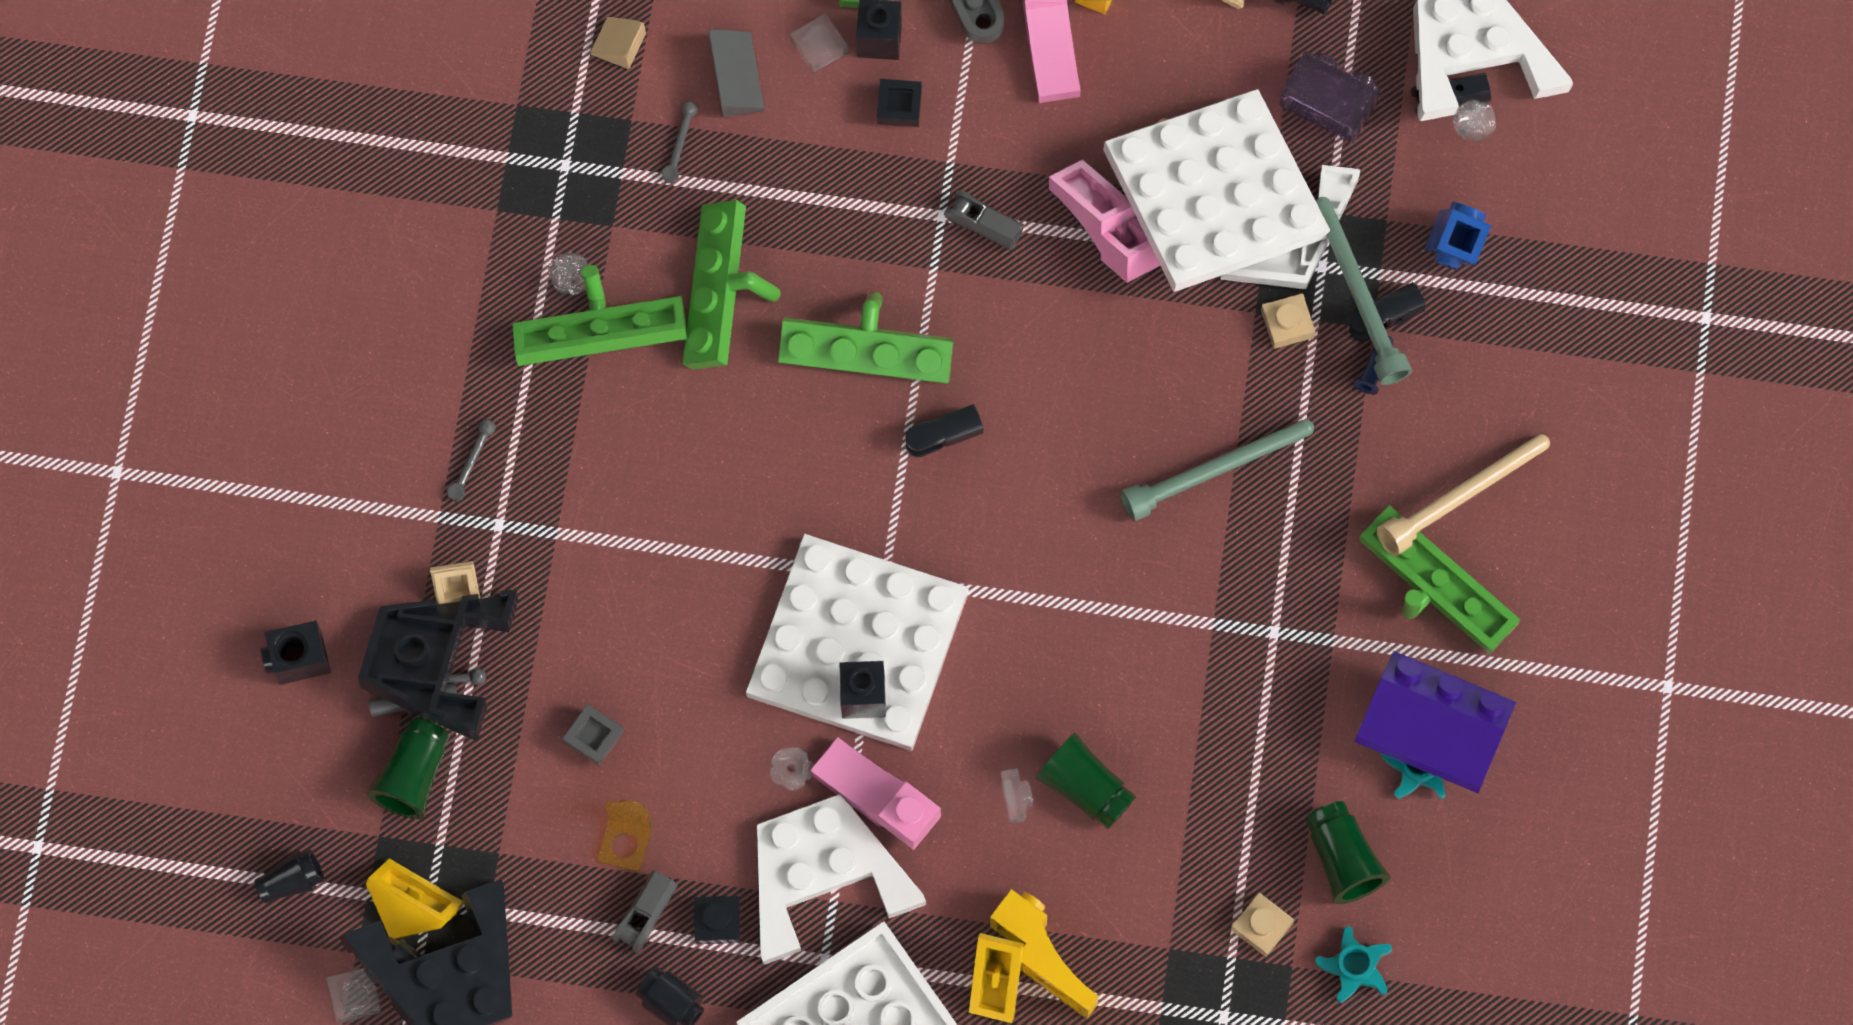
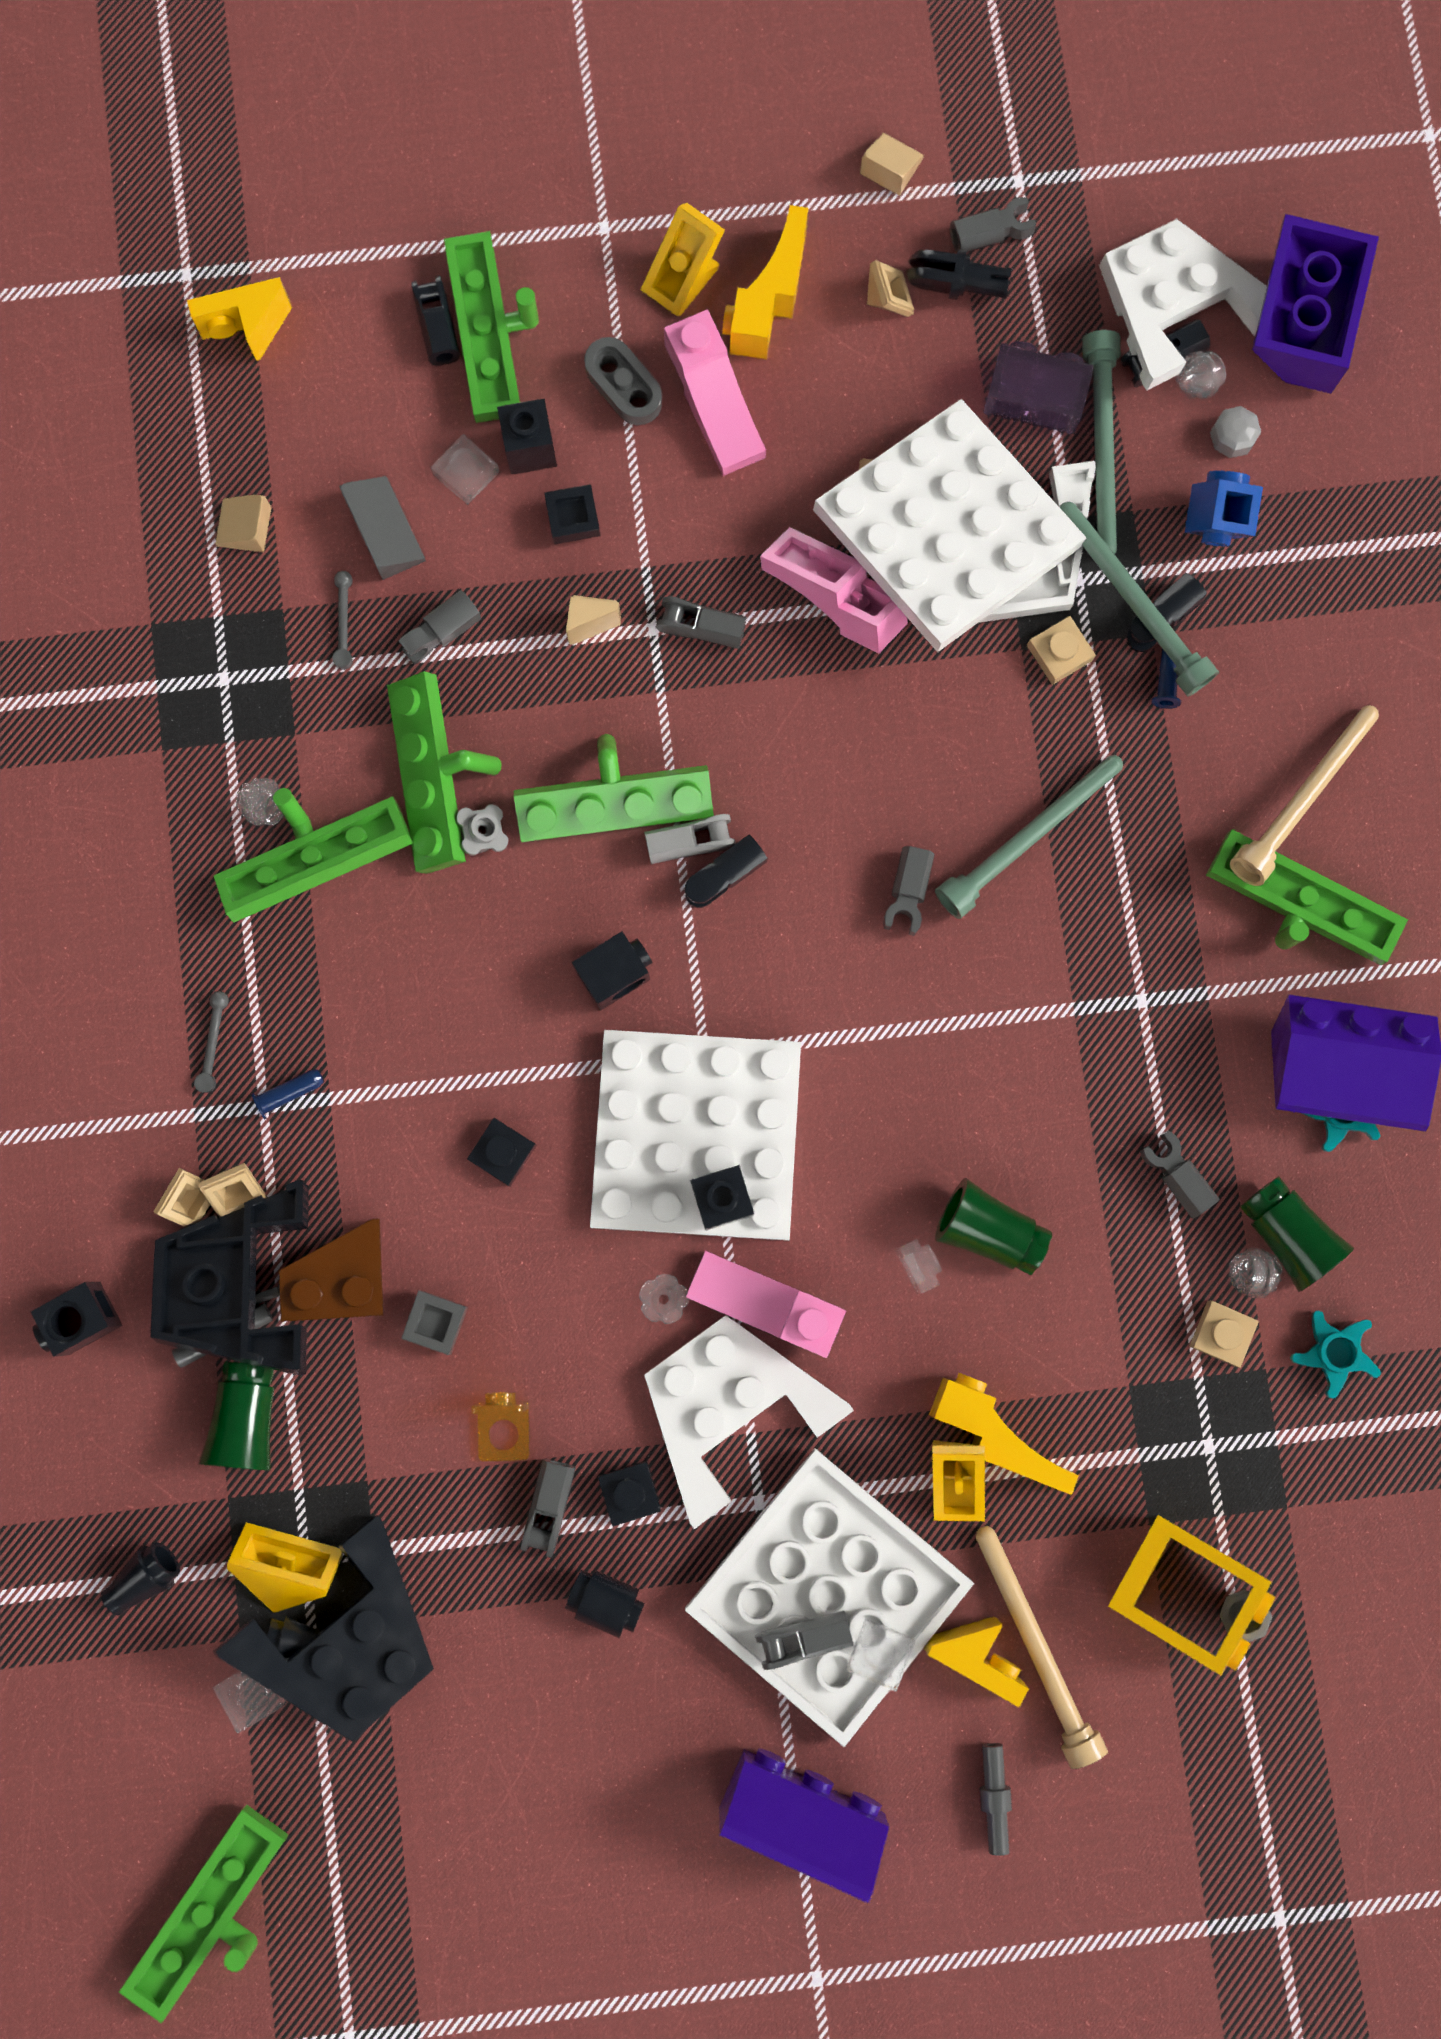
camera: 20 degrees left, 10 degrees up
(413, 579) = (183, 1200): none -> tan slope
(522, 678) = (336, 1279): none -> reddish brown wing
(524, 516) = (287, 1091): none -> dark blue piece
(689, 613) = (501, 1152): none -> black plate
(739, 351) = (475, 842): none -> light grey plate
(760, 168) = (440, 627): none -> dark grey bar
(826, 486) = (613, 969): none -> black brick
(890, 192) = (591, 617): none -> tan slope
(914, 396) = (680, 840): none -> light grey bar
(1099, 484) = (910, 886): none -> dark grey bar
(1263, 785) = (1181, 1177): none -> dark grey bar
(1303, 878) = (1255, 1272): none -> clear plate
(1394, 81) = (1102, 350): none -> sand green piece
(1493, 176) = (1235, 432): none -> light grey tile
(1584, 82) = (1314, 302): none -> dark purple slope

